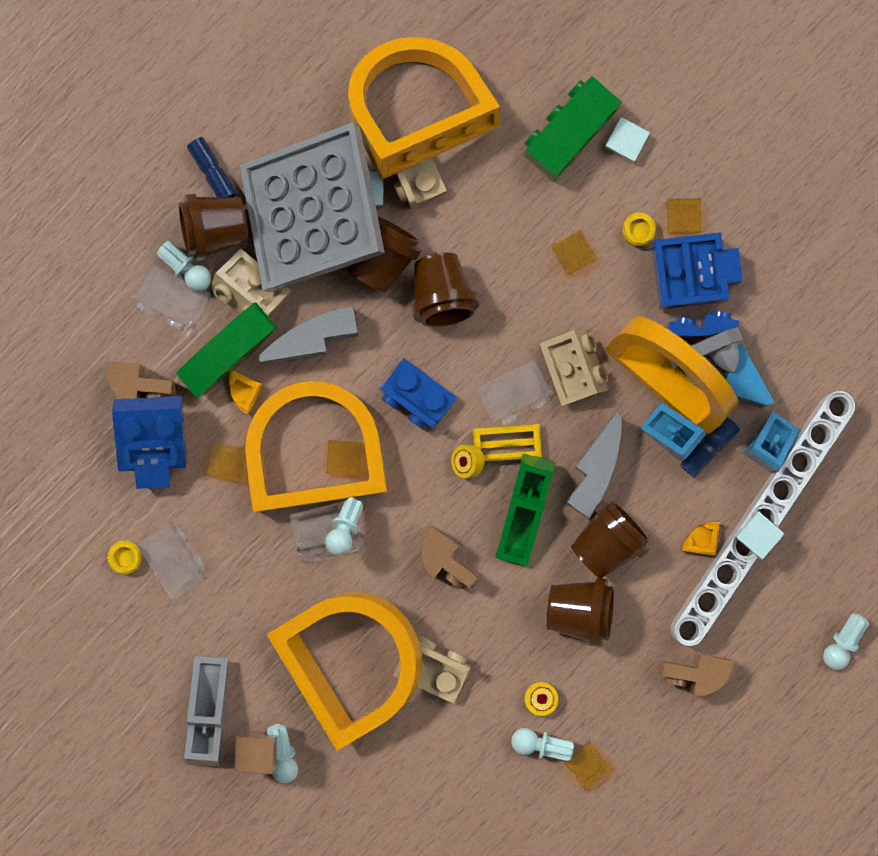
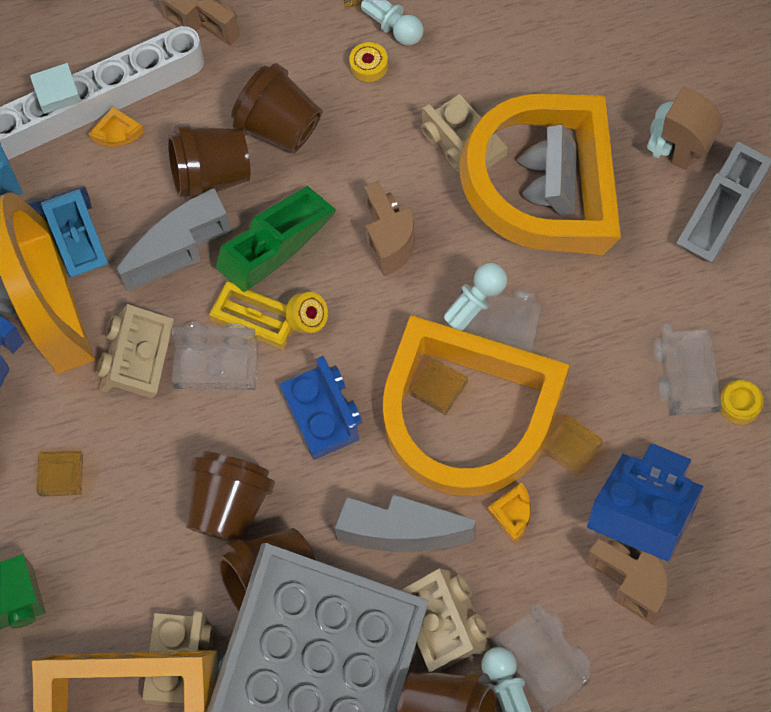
camera: 150 degrees left, 20 degrees down
(226, 350) = (508, 556): green slope -> none
(350, 685) = (558, 159): none -> light grey tile

